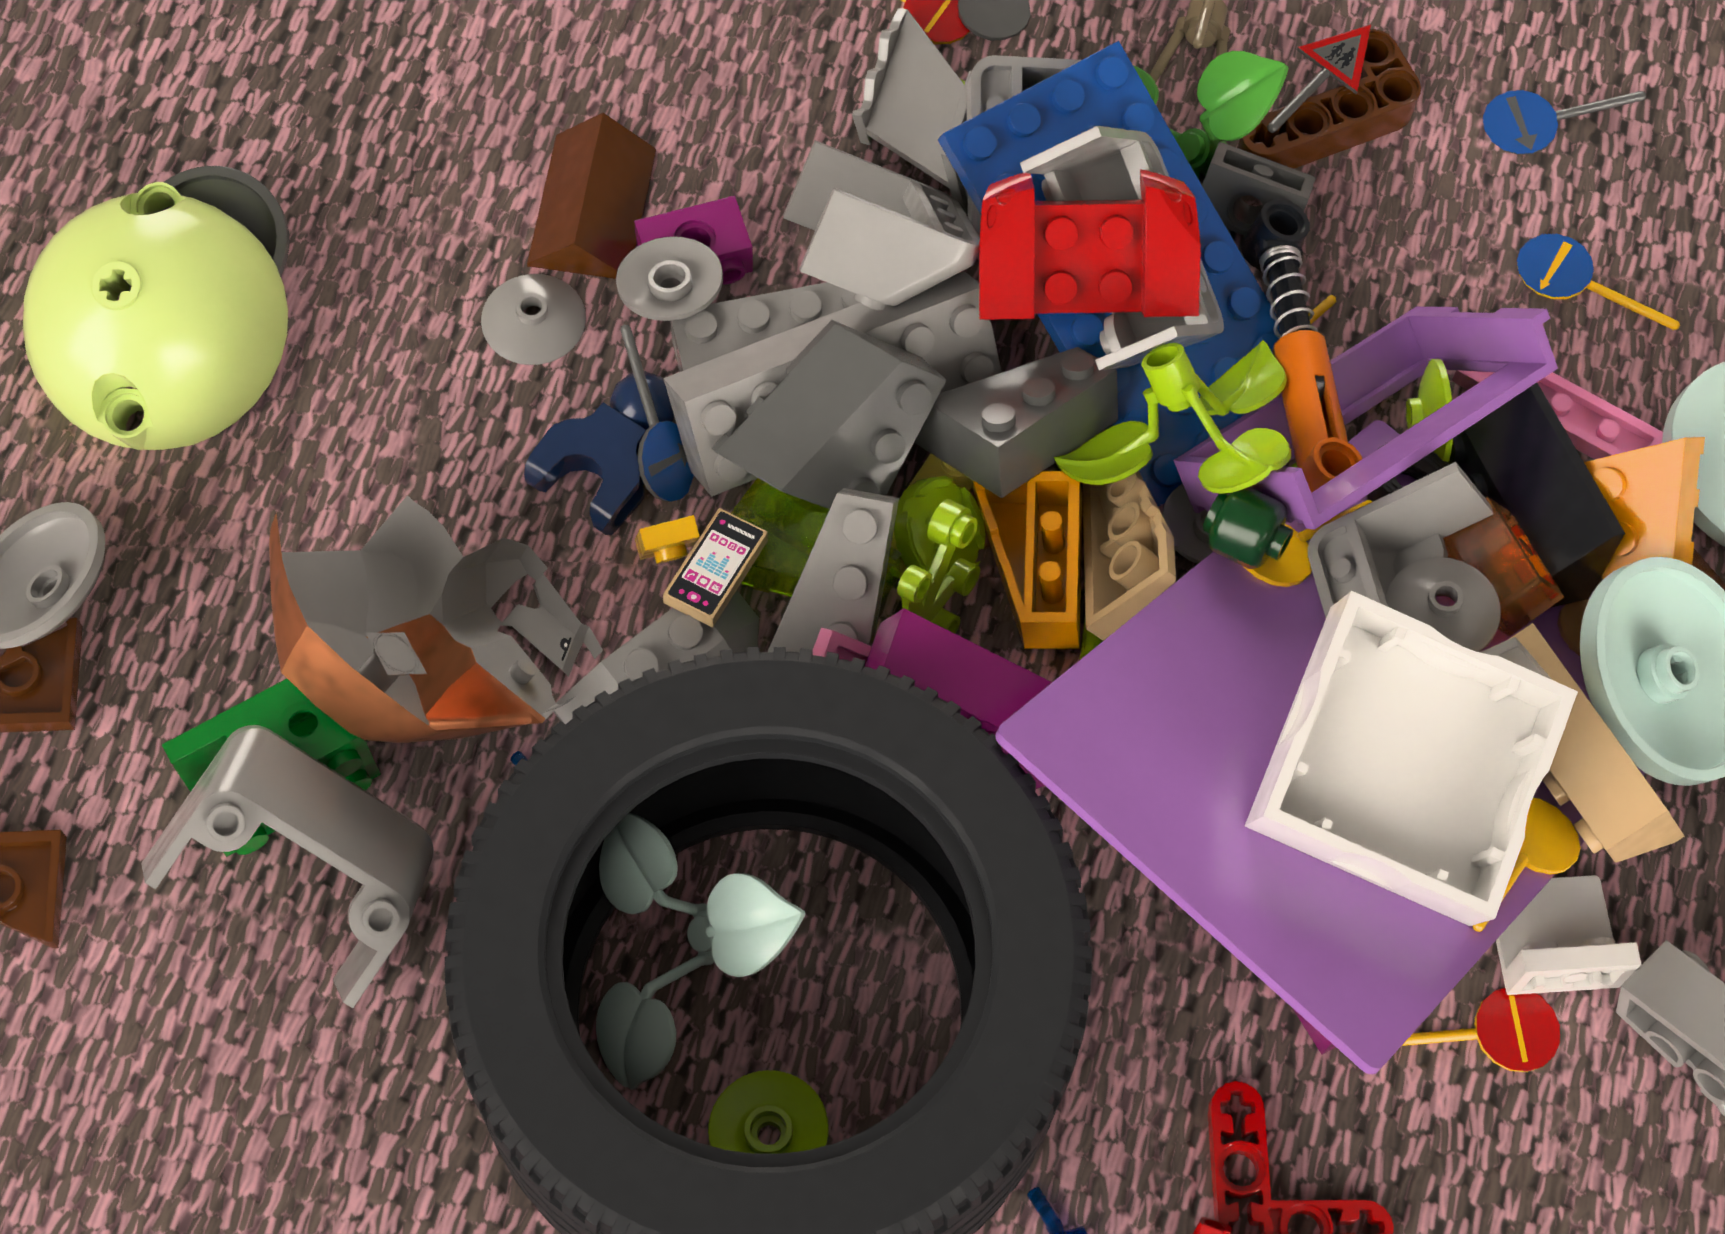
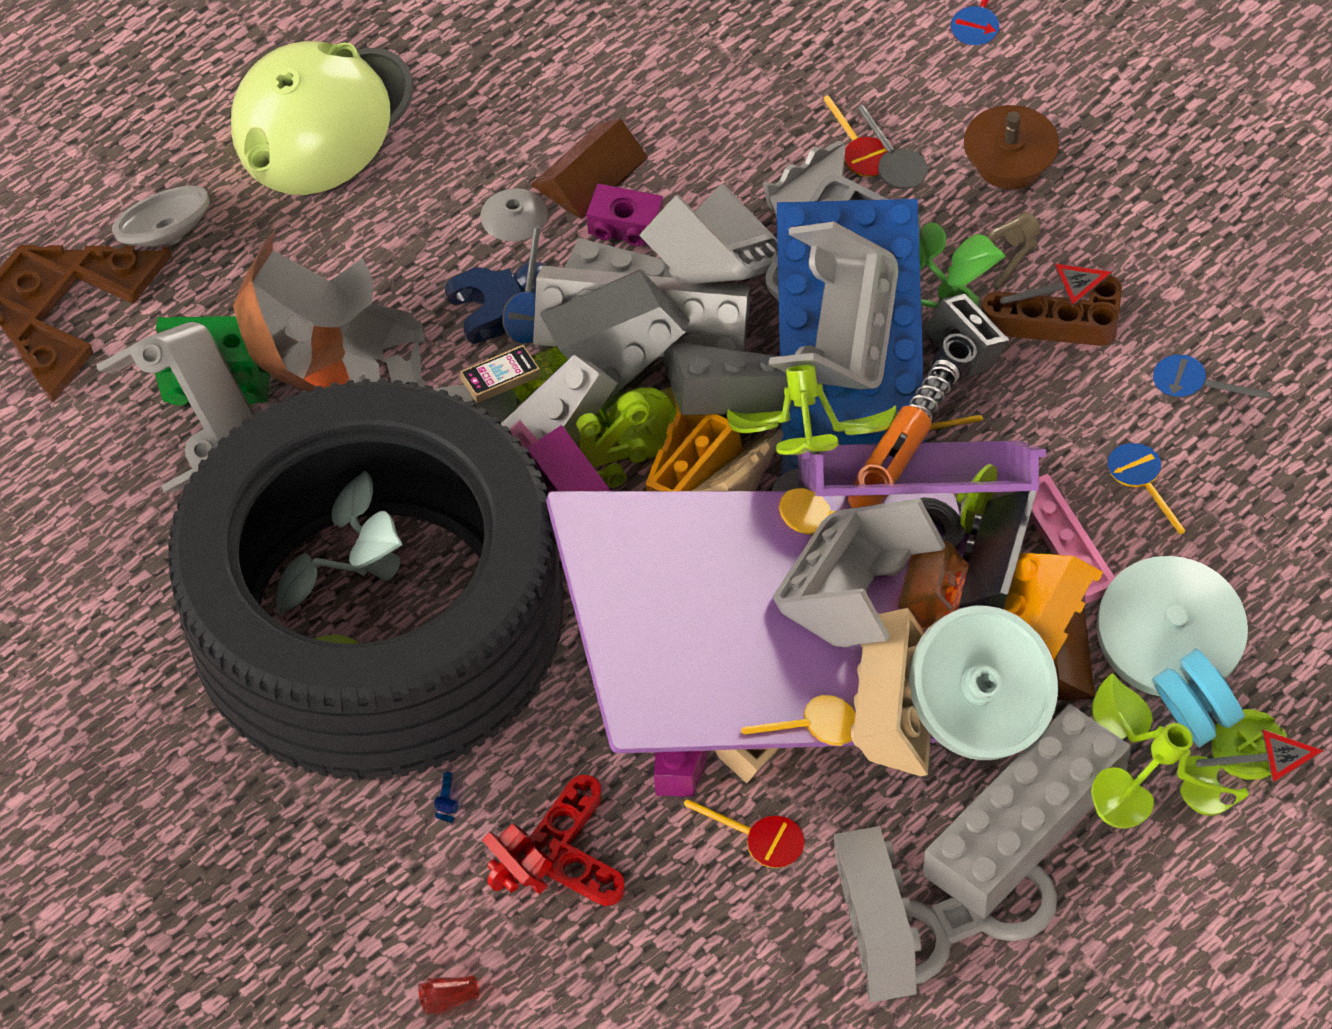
camera: 40 degrees right, 10 degrees down
(667, 540) = (486, 347): yellow plate -> none
(669, 278) = (589, 219): light grey dish -> none
(1089, 252) = (807, 300): red piece -> none
(1248, 527) = (787, 481): dark green head -> none
(1411, 760) = (757, 618): white tile -> none
(1476, 607) = (887, 592): light grey dish -> none
(1565, 942) = (829, 801): white bracket -> none

